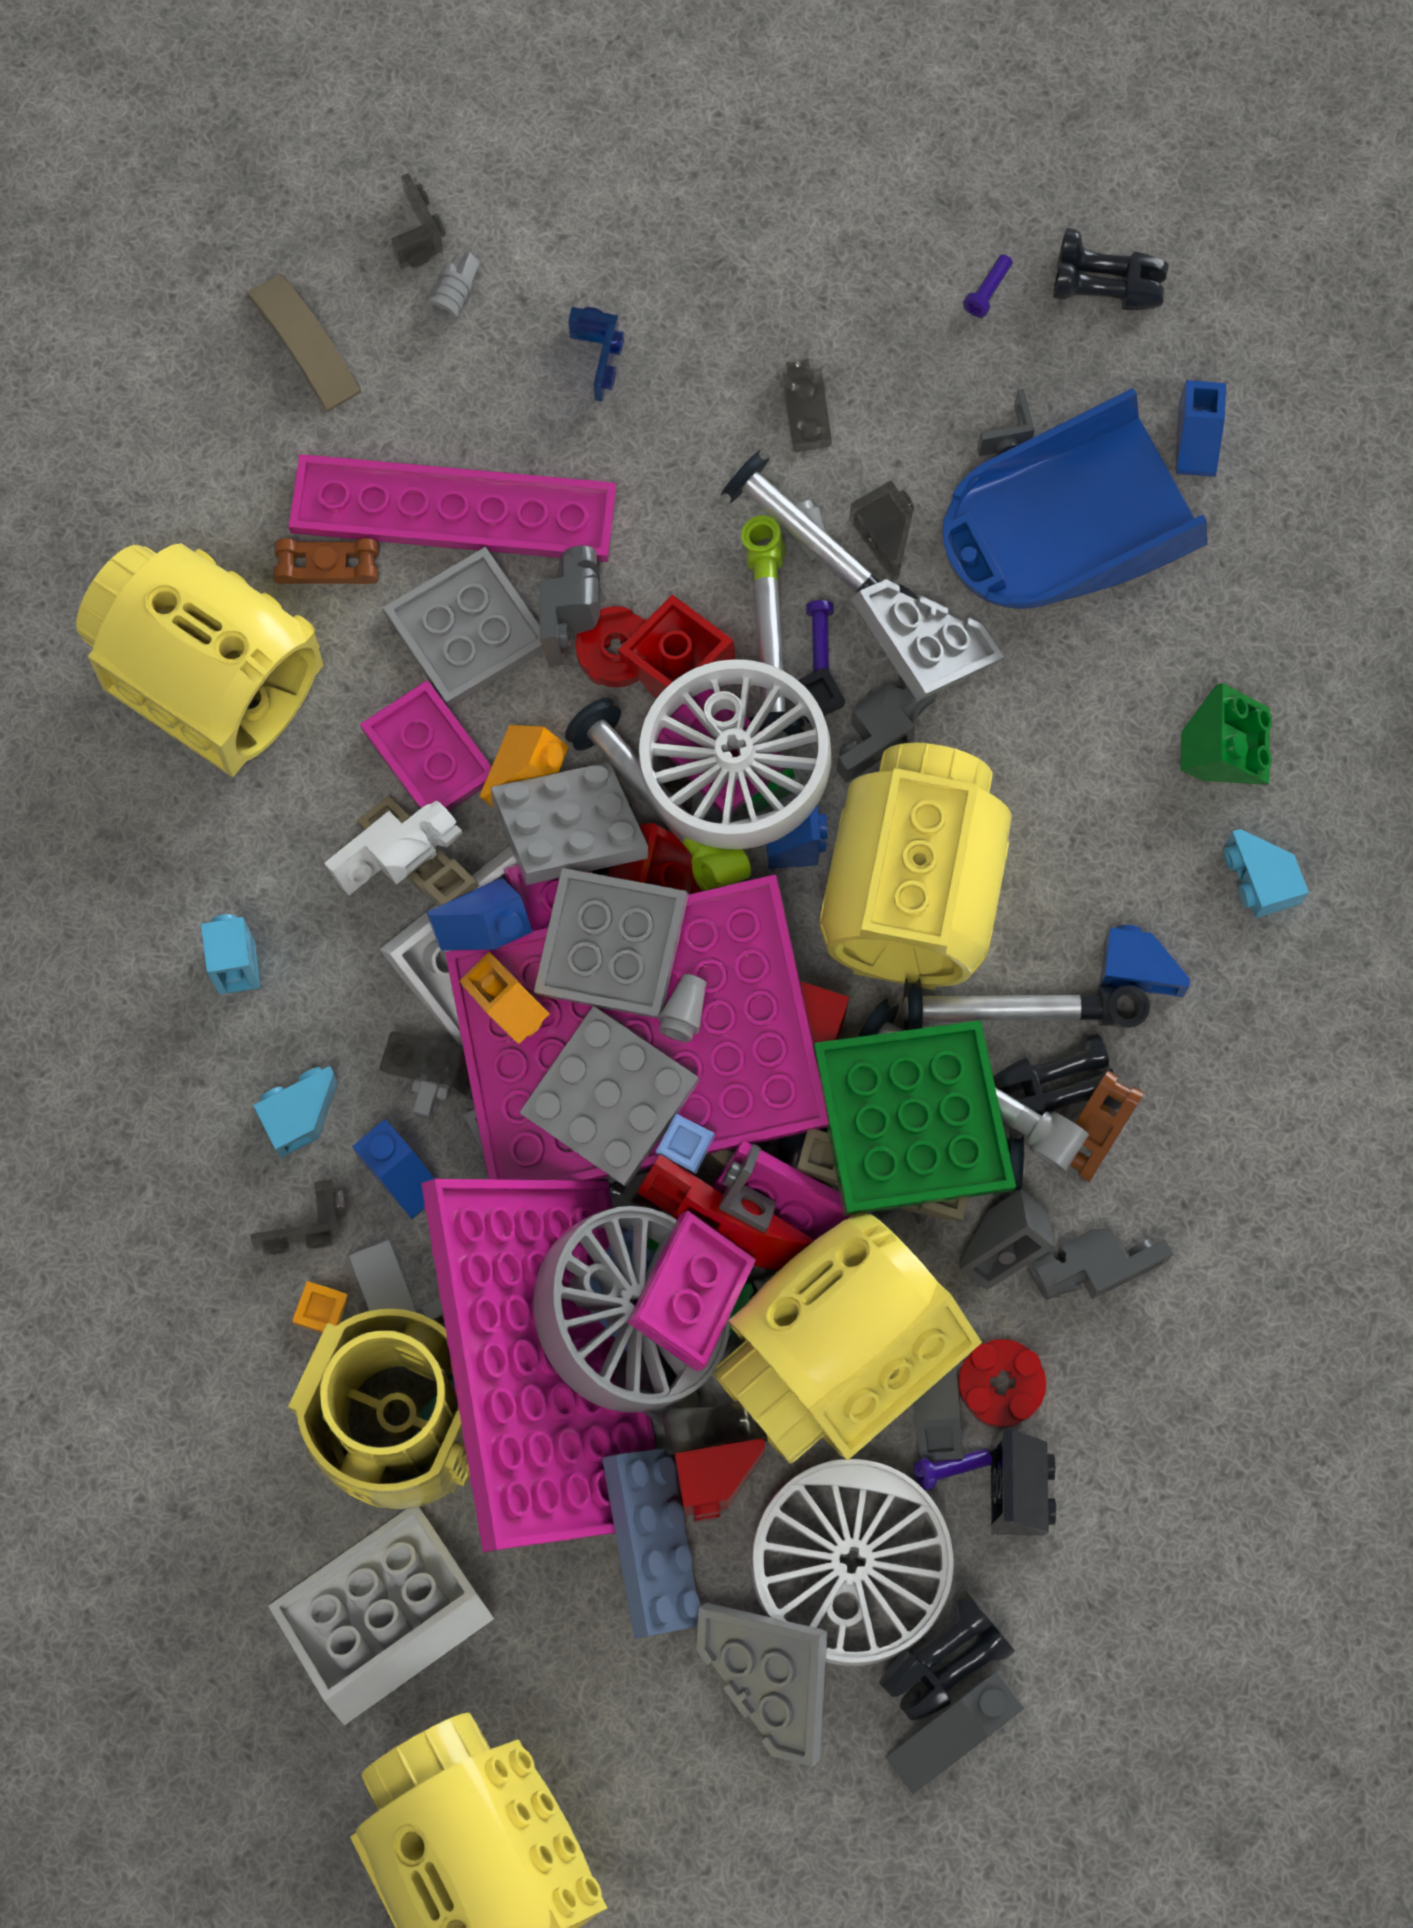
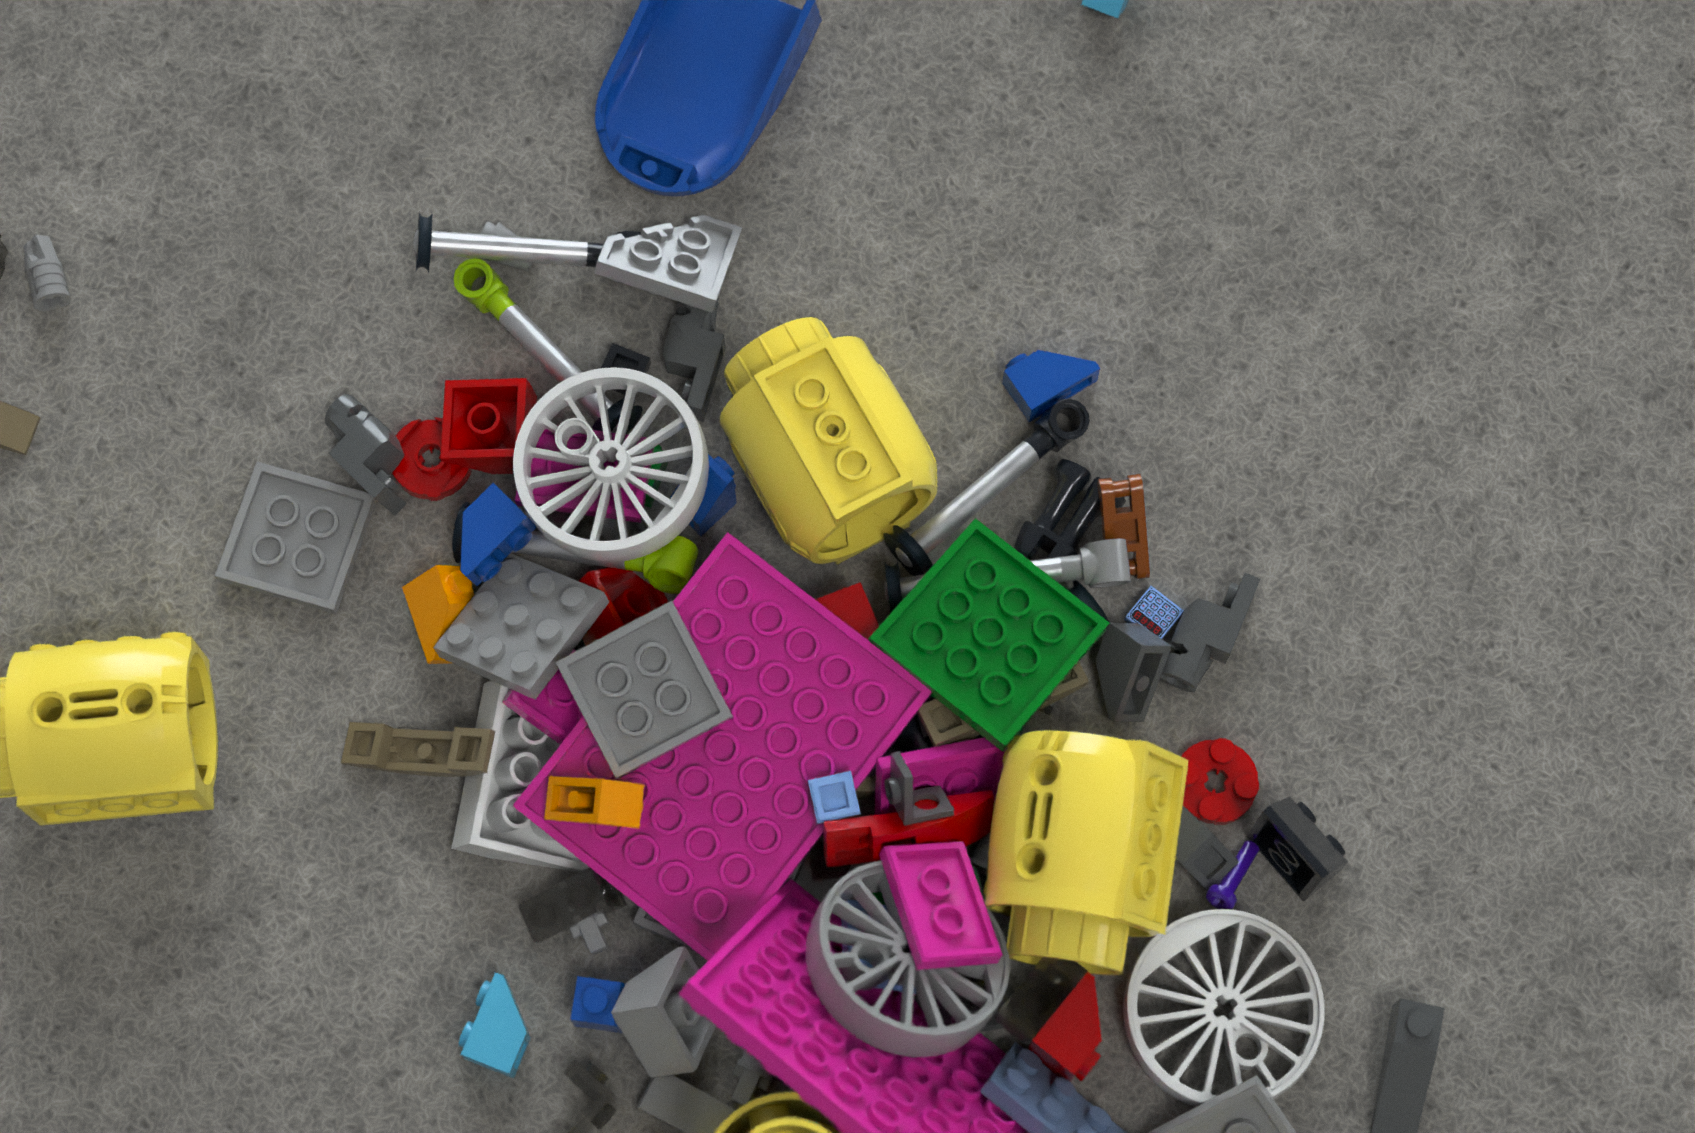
camera: 40 degrees left, 0 degrees up
(230, 954) = (336, 950): medium azure brick -> none
(326, 562) = (133, 576): dark orange plate -> none
(393, 847) = (395, 757): white plate -> none
(401, 1208) = (659, 1022): none -> light grey slope
(427, 749) = (351, 661): dark pink plate -> none
(451, 507) = (198, 453): dark pink plate -> none
(481, 919) = (521, 755): blue slope -> none
(602, 328) = (196, 214): clear blue bracket -> none
(603, 735) = (490, 533): none -> blue slope
(610, 1096) = (743, 810): light grey plate -> none
(683, 1010) = (746, 694): light grey cone -> none
(805, 405) = (416, 148): clear smoke bracket -> none
(820, 611) = (569, 304): dark purple piece -> none
(884, 524) = (562, 196): clear smoke slope -> none
(931, 1691) = (1339, 1055): black piece -> none
(1005, 439) = (603, 53): dark grey bracket -> none
(1068, 1214) = (1155, 612): none -> tile
(1228, 739) = (966, 157): green slope -> none
(1267, 874) = (1079, 236): medium azure slope -> none

